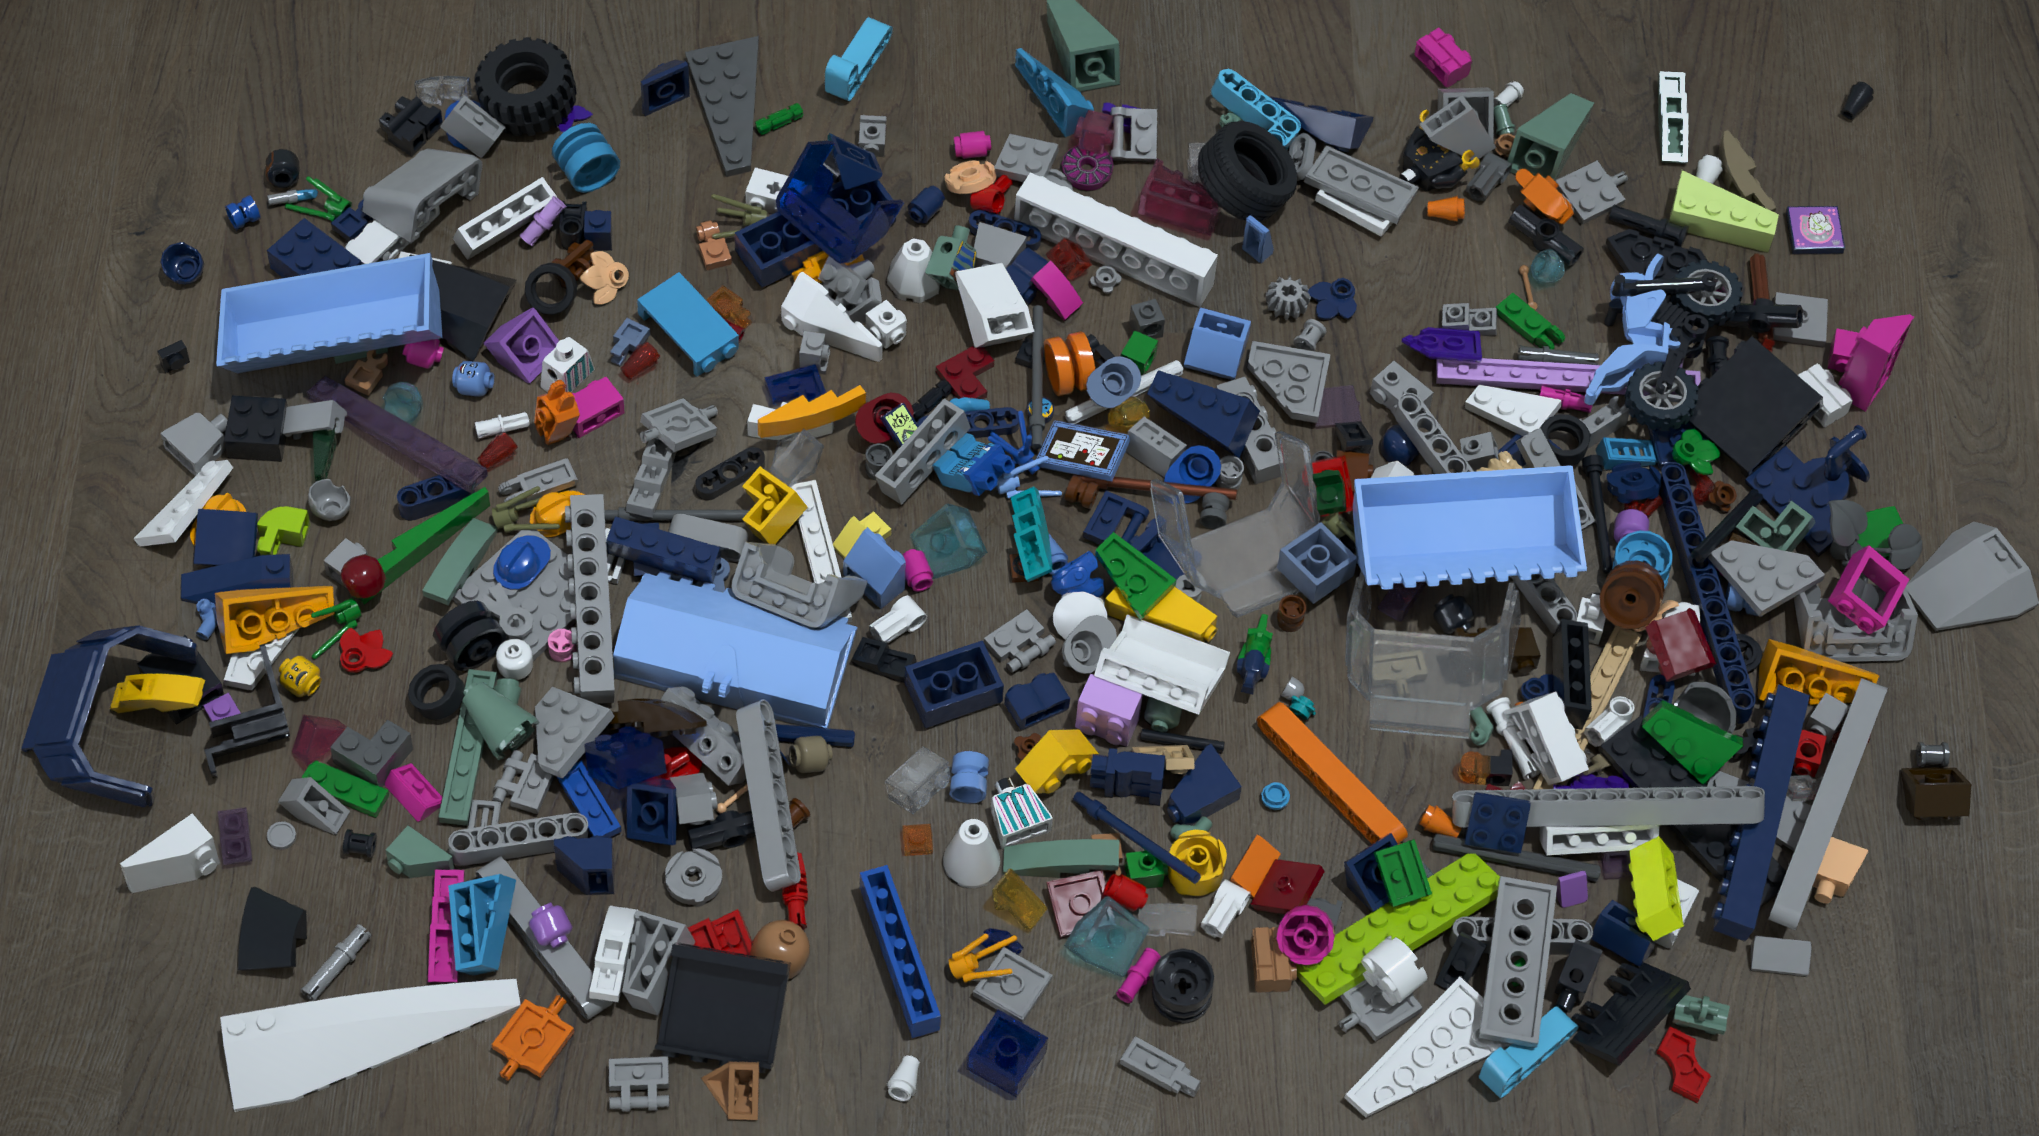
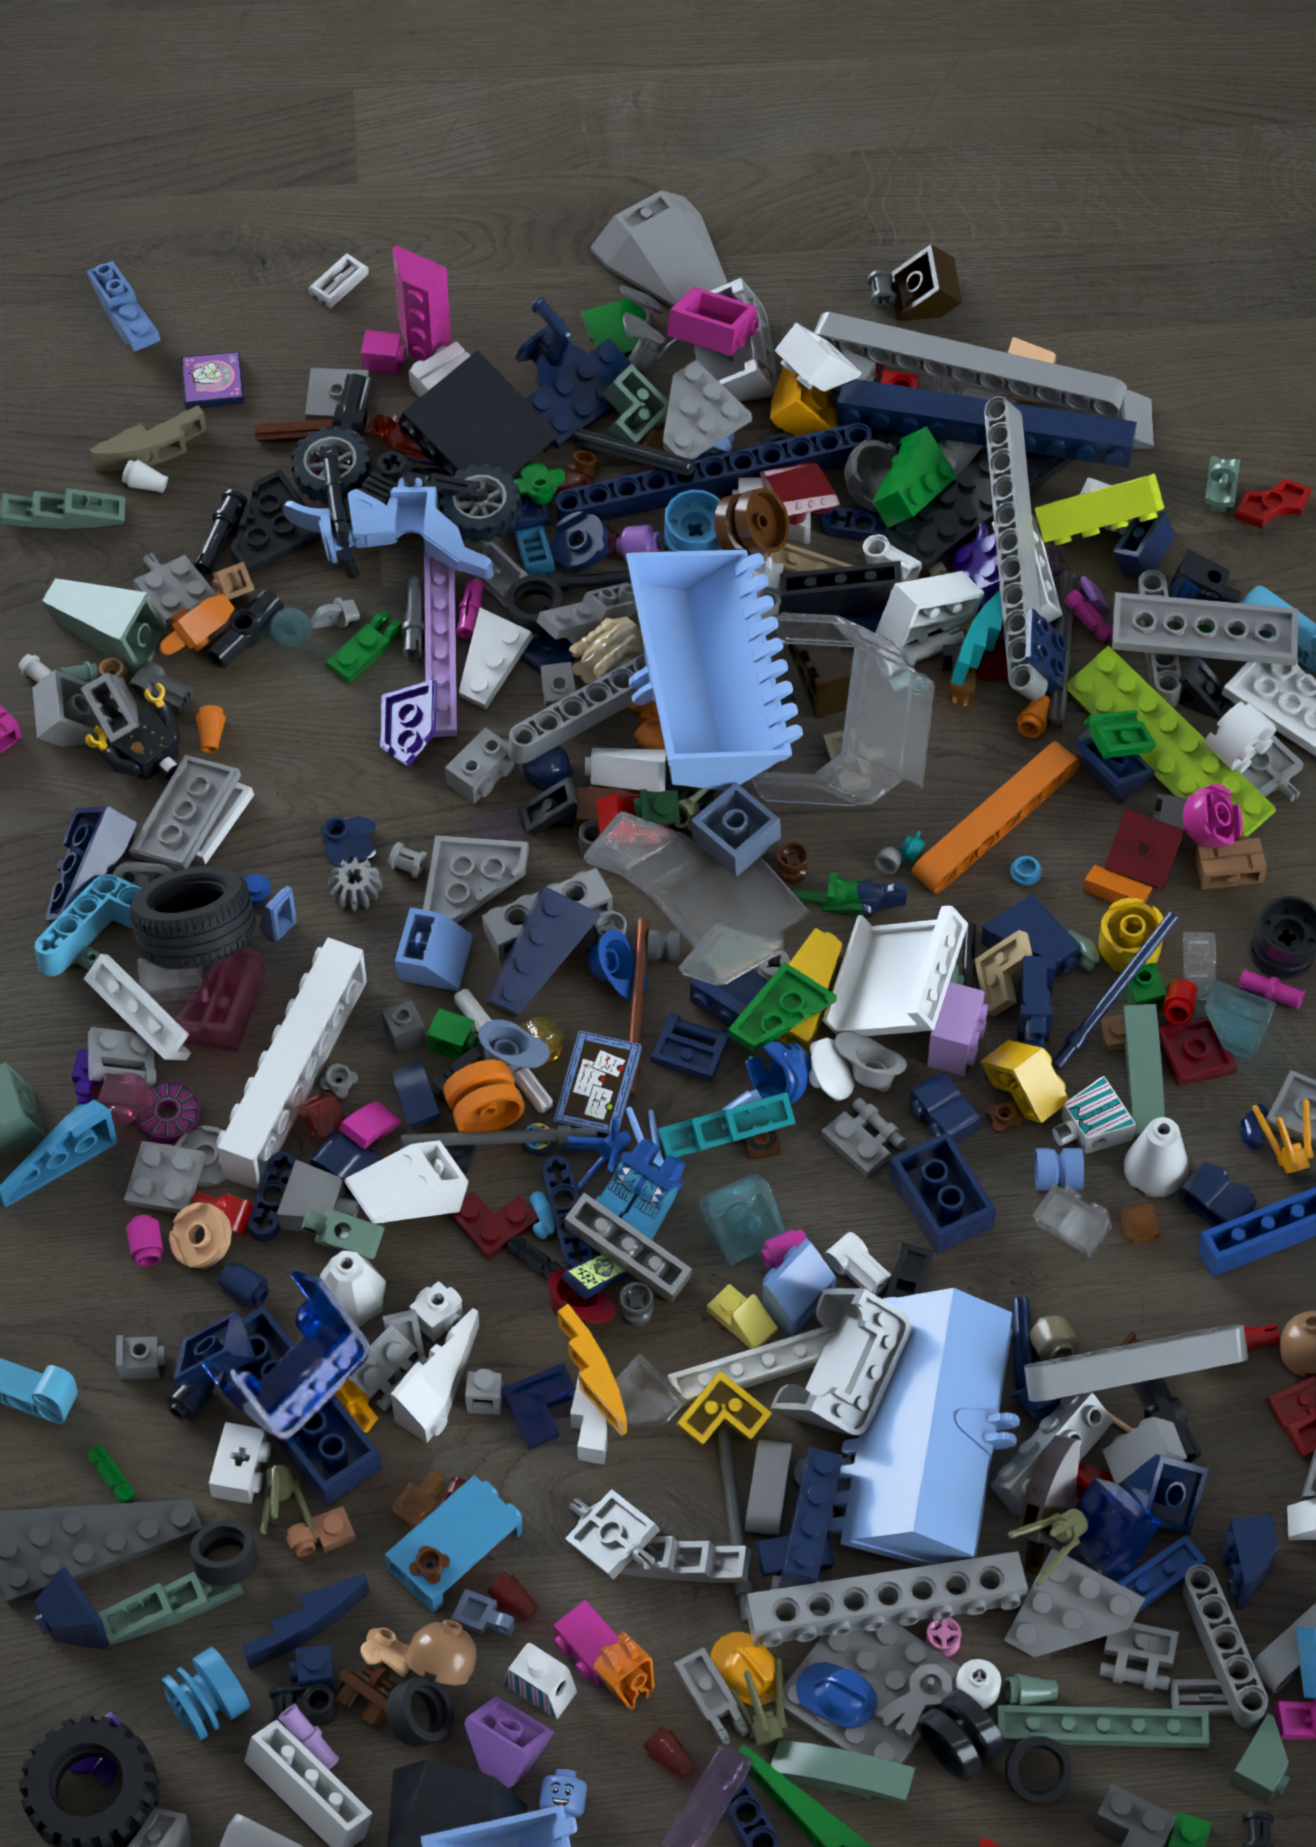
camera: 90 degrees left, 0 degrees up
(413, 791) = (1173, 1780): dark pink slope -> none
(498, 718) = (1078, 1679): sand green cone -> none
(501, 424) = (627, 1754): white axle -> none
(592, 304) = (443, 1651): none -> medium nougat cylinder
(622, 717) = (1064, 1528): none -> olive plant
(642, 233) = (318, 1612): none -> dark blue slope
(663, 289) = (429, 1555): none -> reddish brown plate
(668, 149) = (164, 1607): none -> sand green slope
(694, 892) = (1237, 1469): light grey plate -> none
(706, 166) = (218, 1535): none -> black tyre
(736, 462) = (690, 1486): black beam -> none
(931, 897) = (1215, 1196): none -> dark blue brick
(1018, 899) = (1205, 1110): clear yellow slope -> none
(1082, 492) = (654, 1082): reddish brown wheel -> none
(1089, 323) = (416, 1094): none -> dark blue slope
(1154, 446) = (584, 1007): light grey hinge -> none
(1169, 141) = (138, 1008): none -> white fence
(1228, 903) = (1190, 914): white piece -> none
(1289, 233) = (258, 887): none -> blue plate
(1463, 318) = (365, 704): light grey slope -> none
(1505, 765) = (980, 637): none -> teal slope
(1524, 270) = (289, 654): medium nougat hinge -> none
(1551, 875) = (1089, 615): none -> dark pink axle
(1564, 308) = (338, 614): none -> light grey piece
(1589, 224) = (232, 581): none -> medium nougat brick
(1629, 1018) = (1235, 540): black hinge -> none
(1721, 214) = (203, 464): yellowish green wedge -> none
(1823, 668) = (815, 360): none -> white slope
(1858, 98) = (27, 335): black cone -> none
(1890, 167) = (122, 307): none -> medium blue slope
(1928, 331) = (342, 283): none -> white tile

